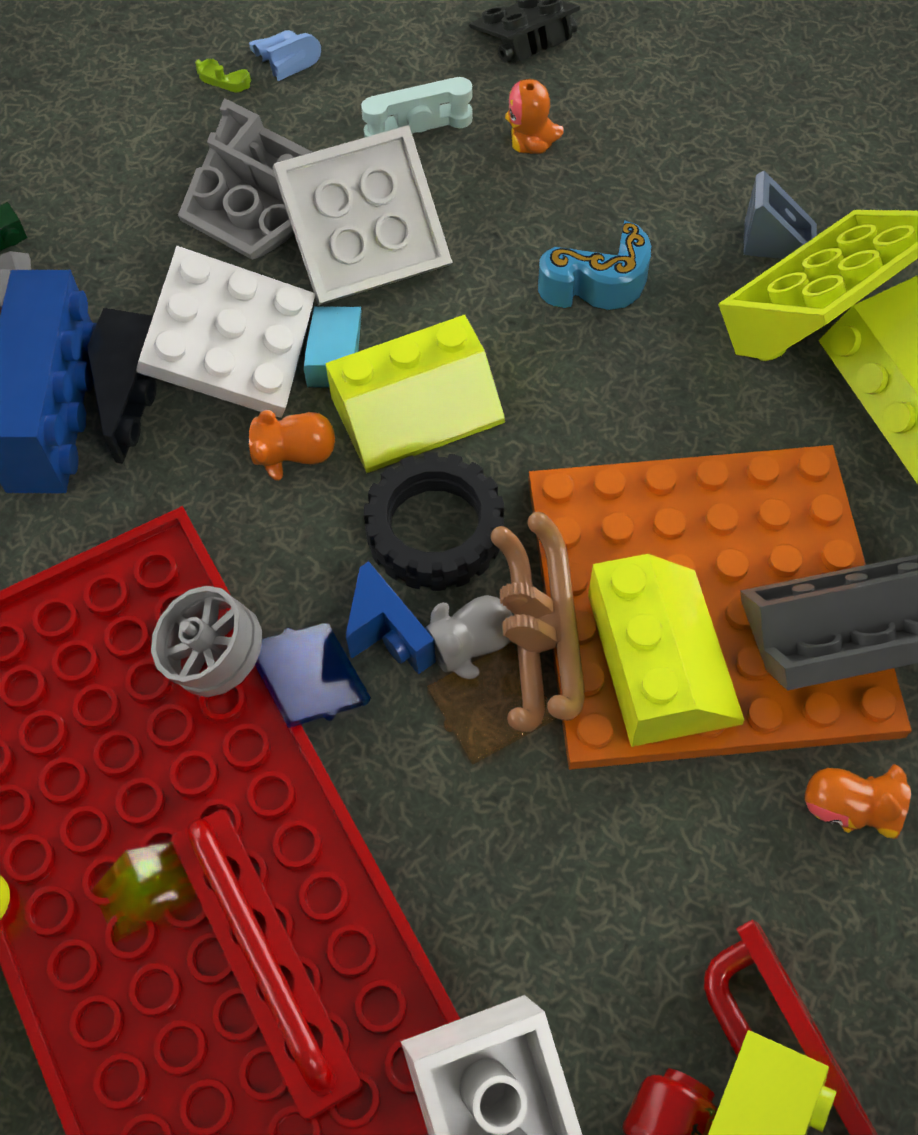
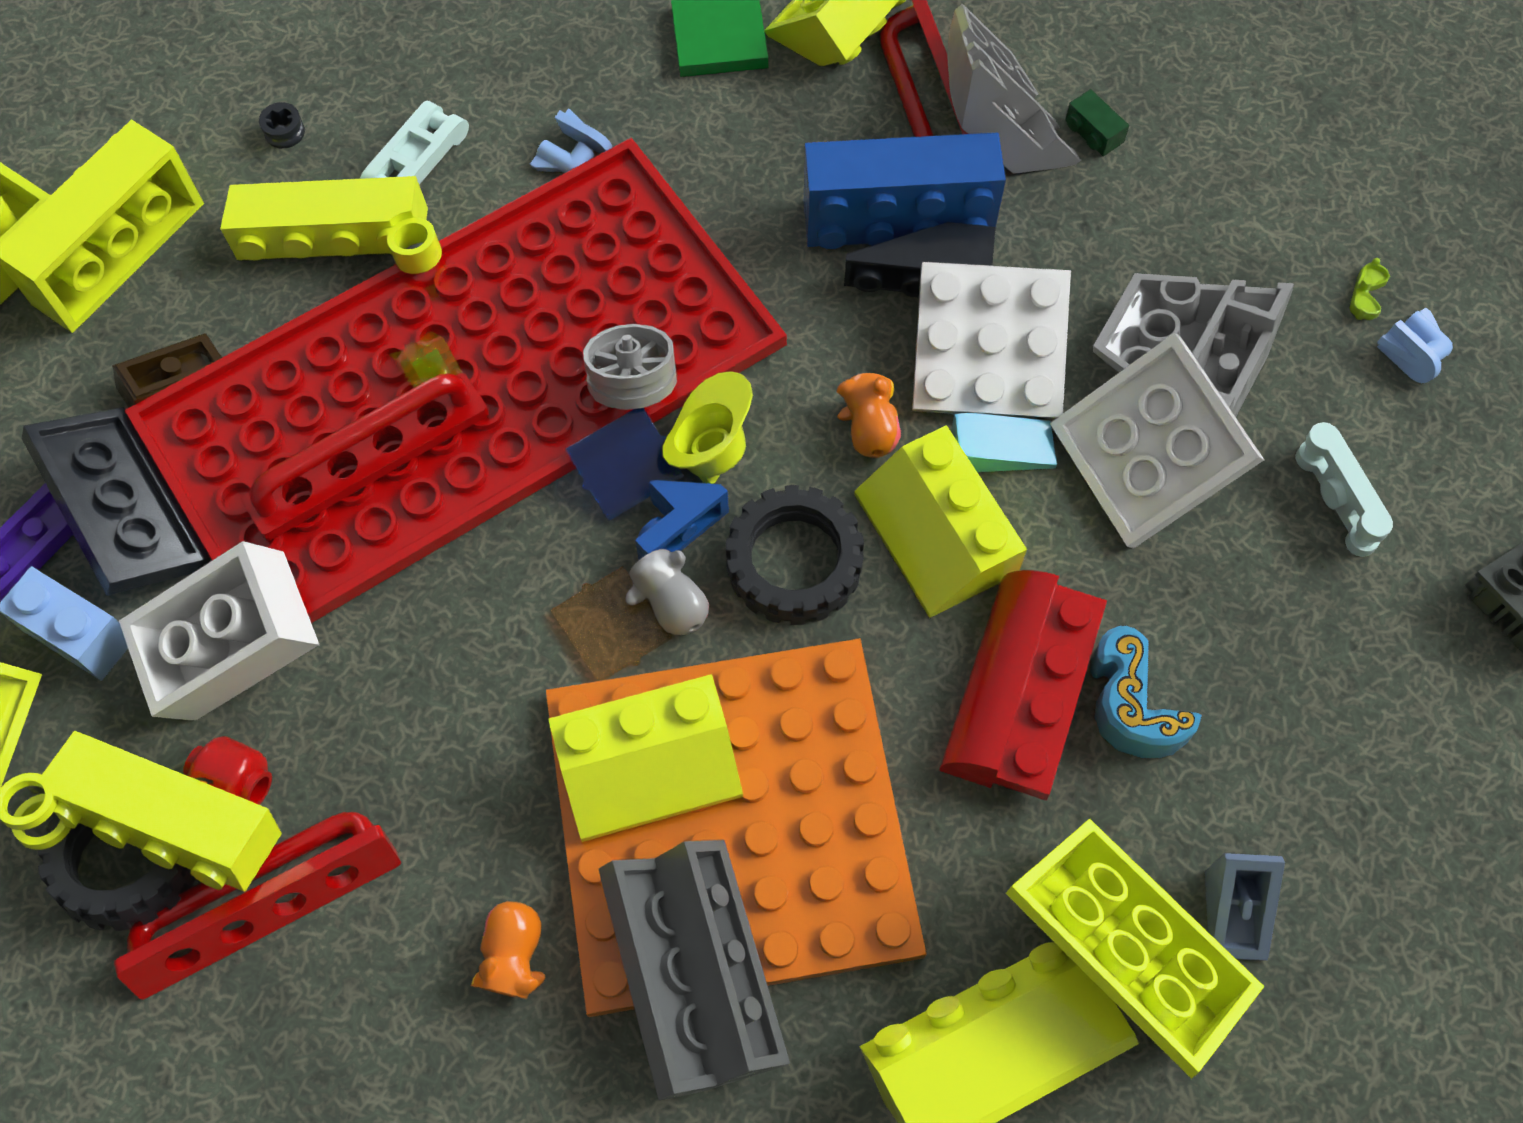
camera: 85 degrees right, 5 degrees up
(281, 577) = (709, 427): none -> neon yellow piece
(528, 116) = (1354, 610): orange animal -> none
(541, 624) = (675, 655): medium nougat piece -> none
(583, 349) = (1024, 684): none -> red brick

